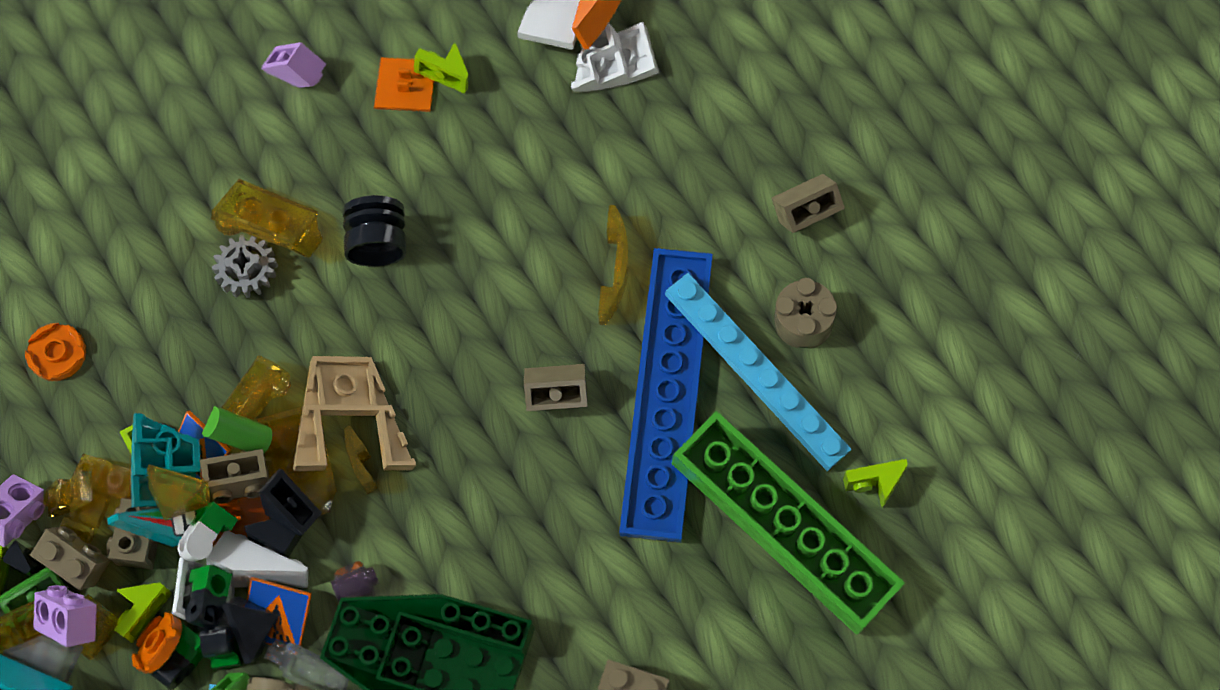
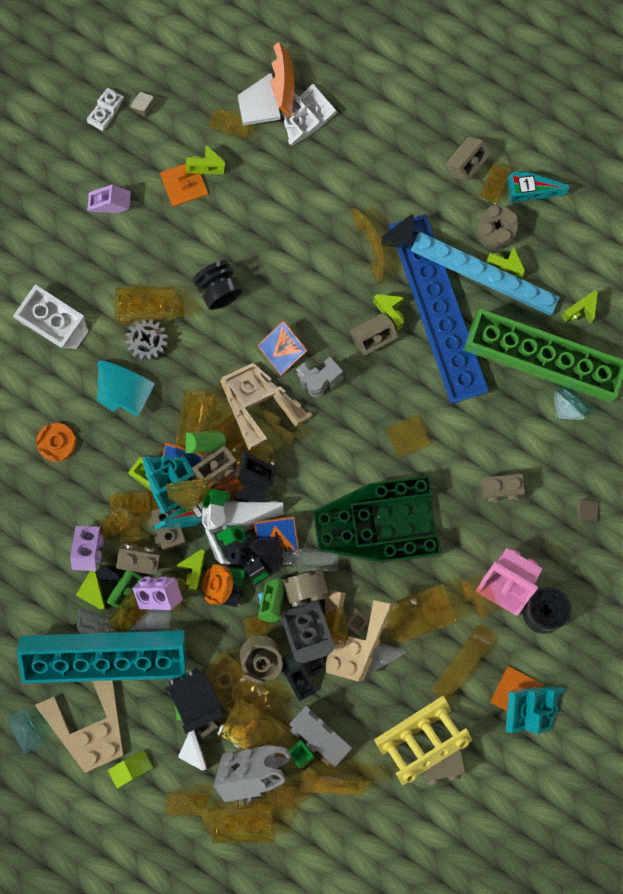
camera: 30 degrees left, 10 degrees up
(136, 187) = (52, 319): none -> white slope
(177, 316) = (122, 388): none -> teal slope
(354, 581) = (312, 499): clear purple head -> none
(421, 354) = (282, 347): none -> piece
(449, 419) = (318, 382): none -> light grey hips
(503, 30) = (229, 124): none -> clear yellow slope
(536, 554) = (408, 436): none -> clear yellow piece
(598, 359) = (387, 305): none -> lime slope
(659, 265) = (400, 235): none -> black slope
(792, 611) = (568, 405): none -> clear light blue slope
(799, 374) = (512, 265): none -> lime slope
(833, 253) = (494, 183): none -> clear yellow slope
(882, 278) = (531, 187): none -> teal slope

